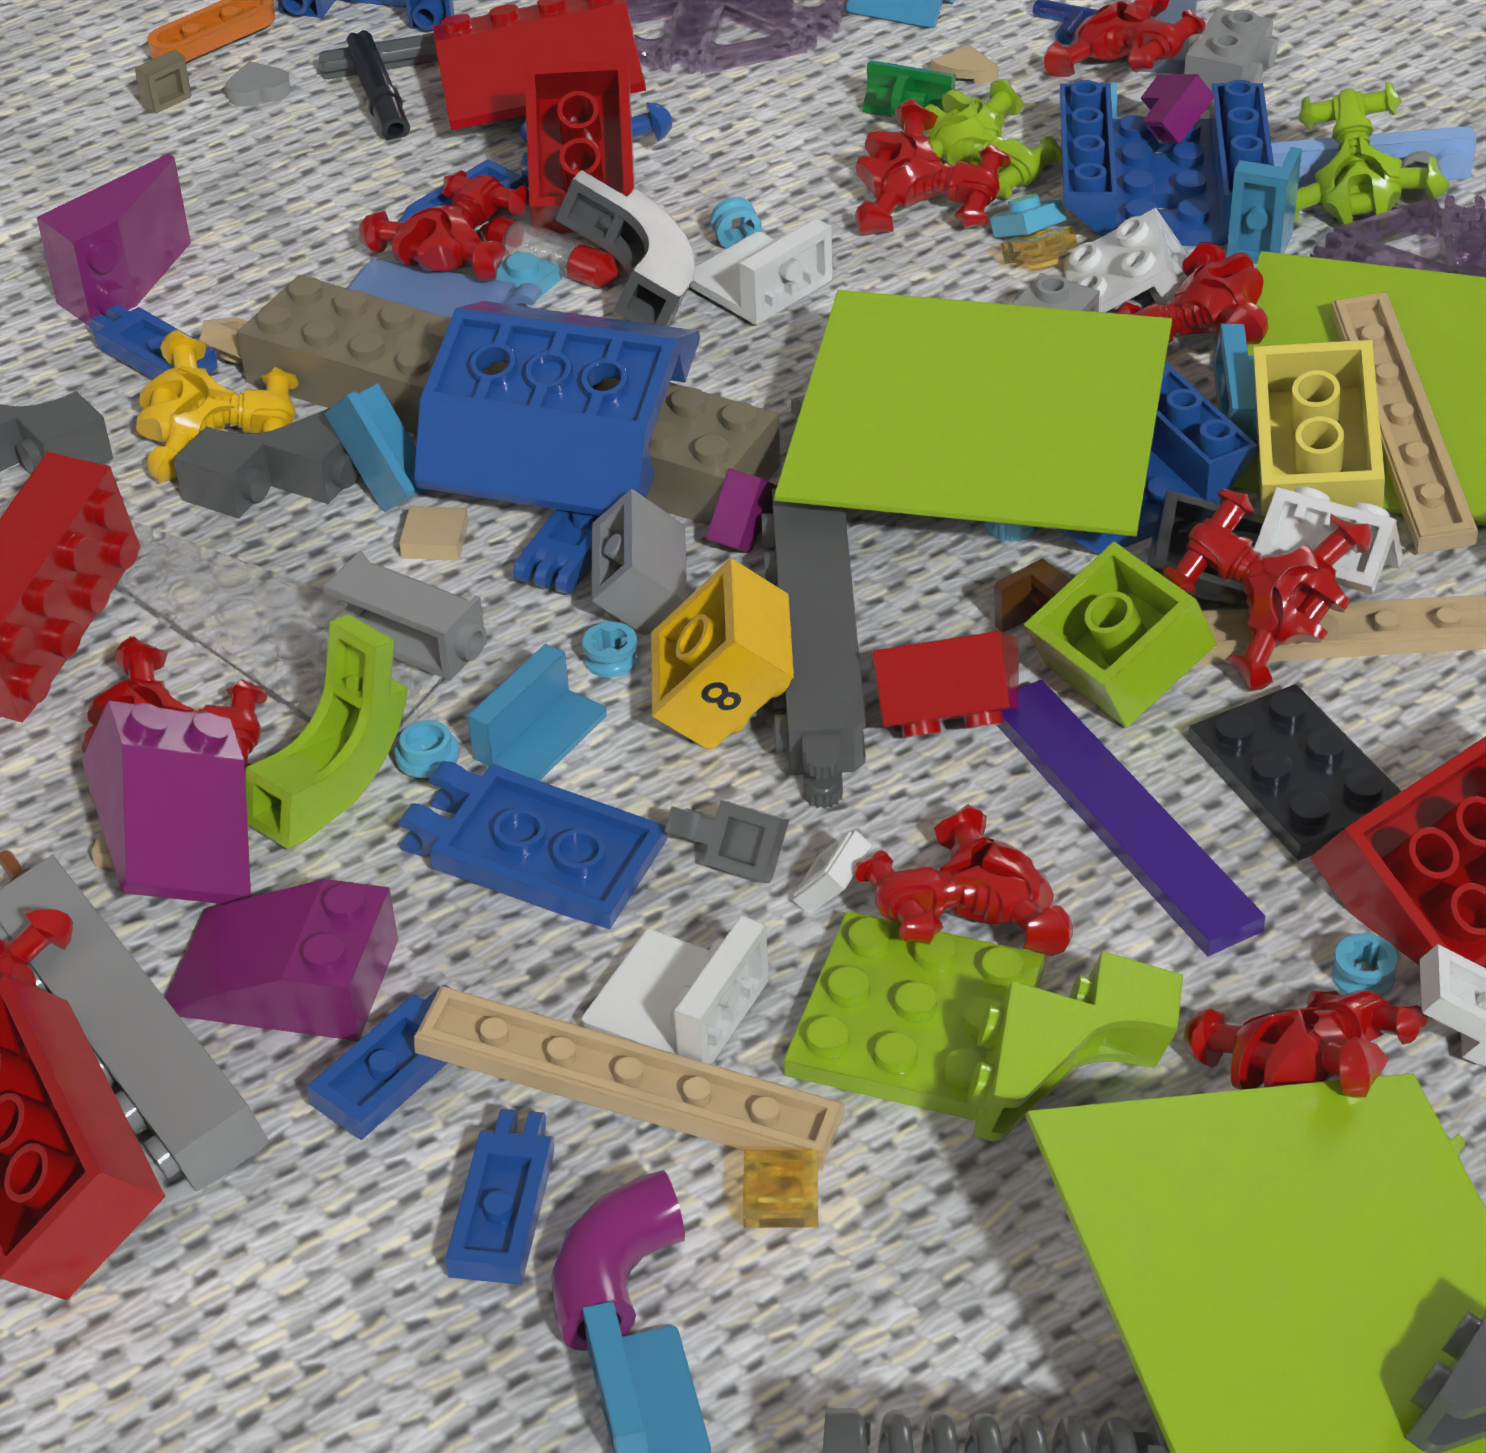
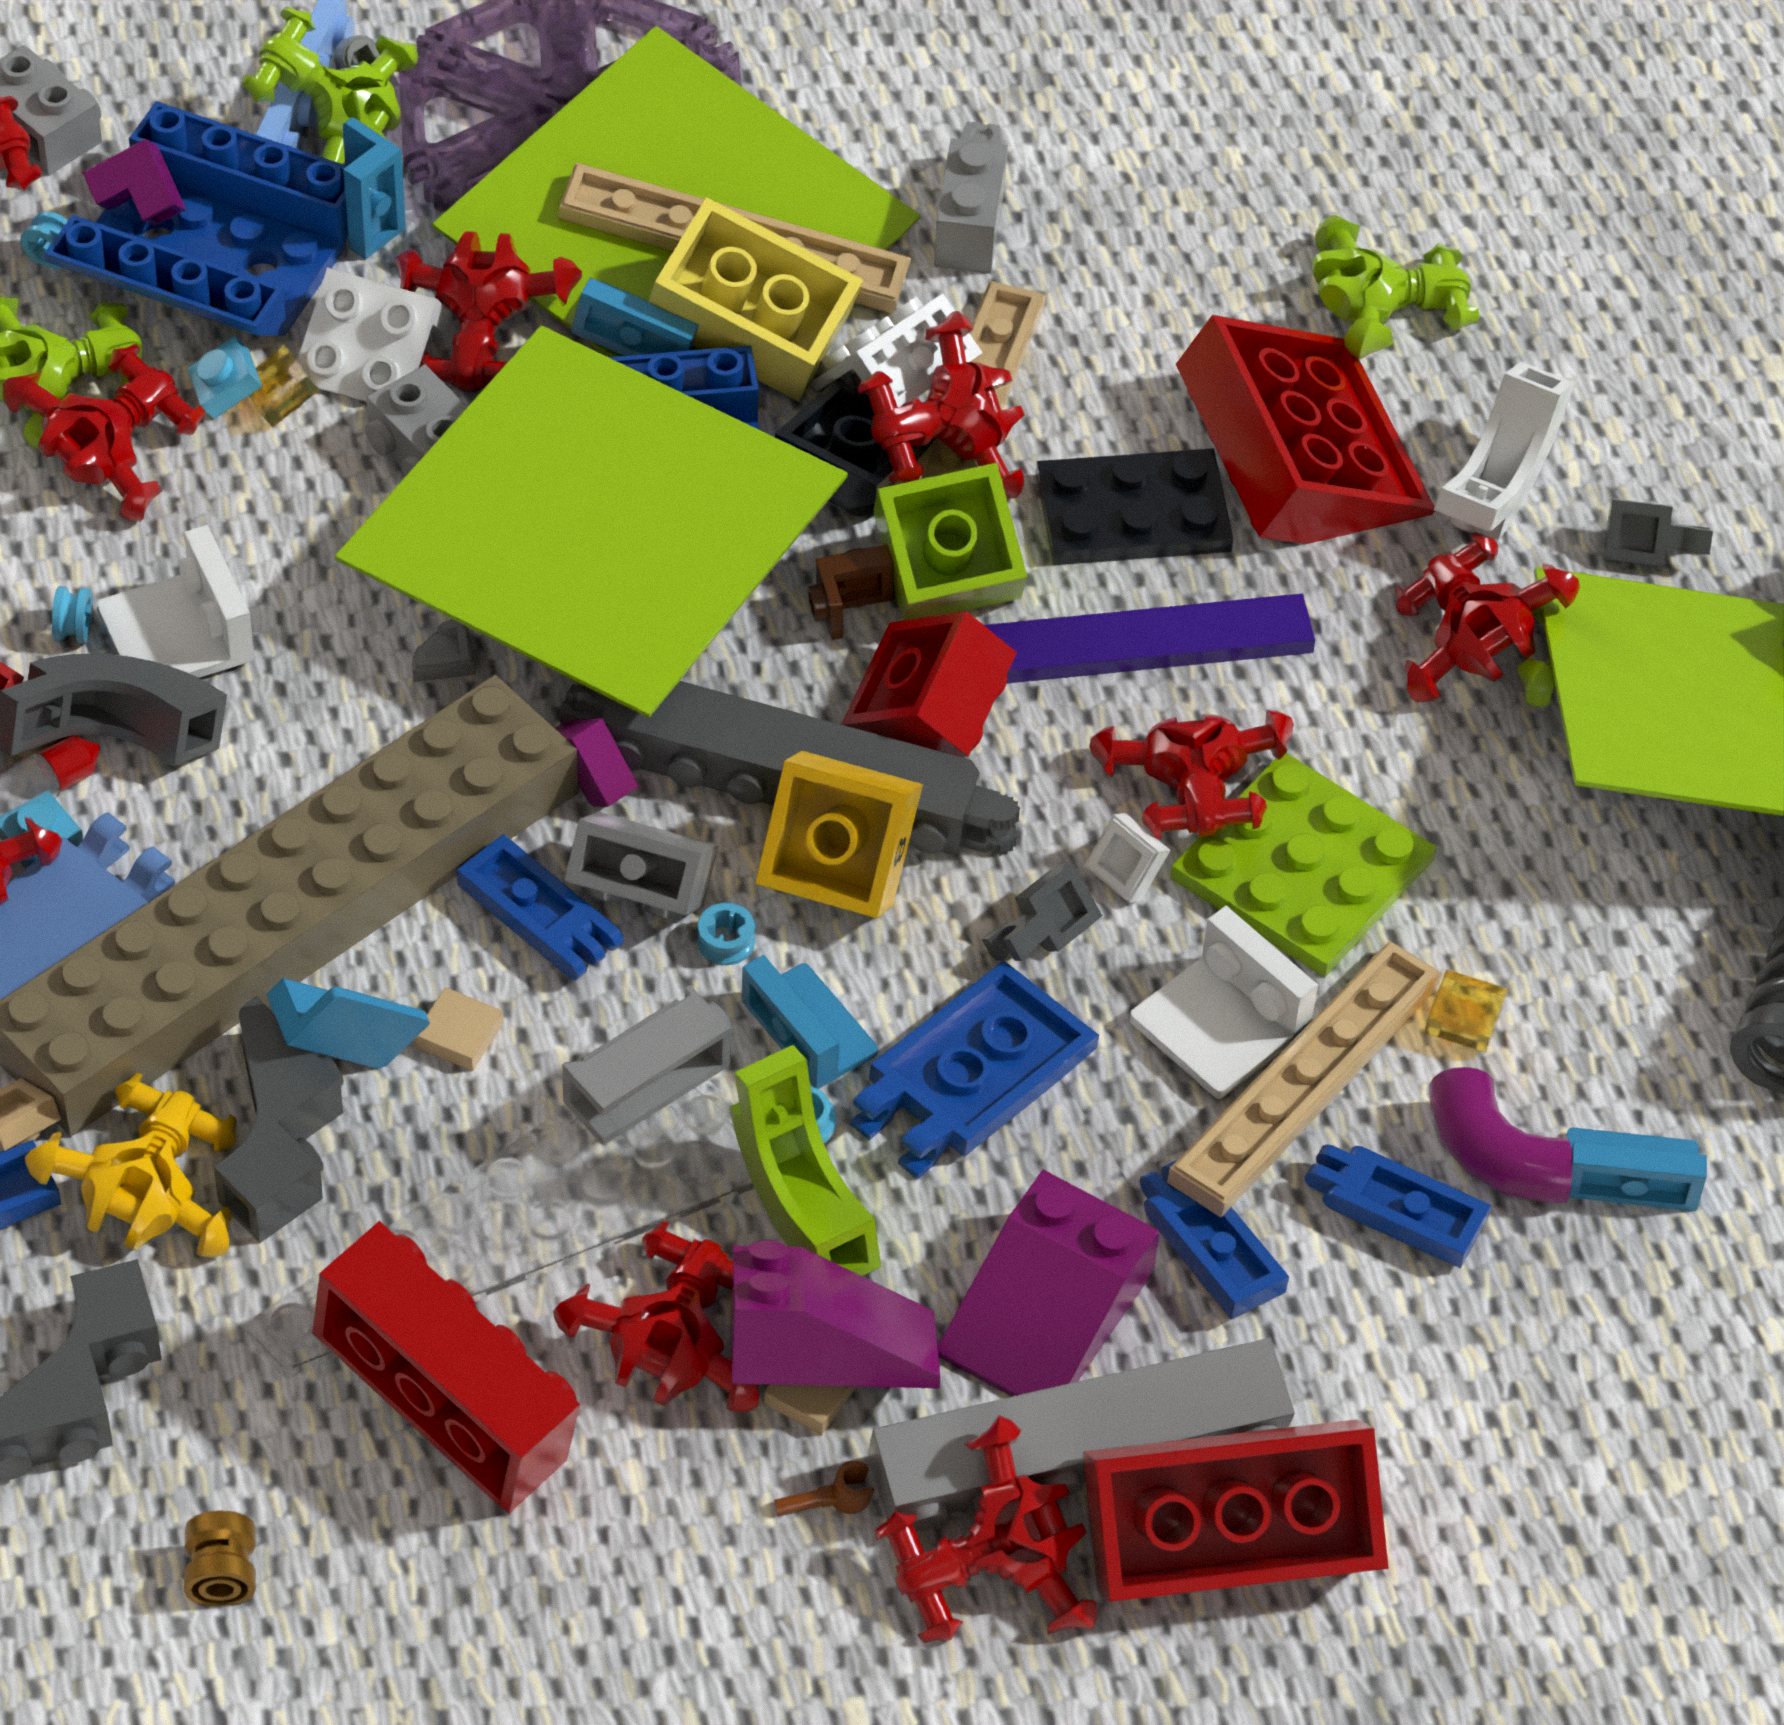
camera: 75 degrees left, 10 degrees up
(539, 424) = (445, 853): blue slope -> none
(1040, 1037) = (1412, 776): lime arch -> none
(1369, 949) = (1382, 541): medium azure bush -> none

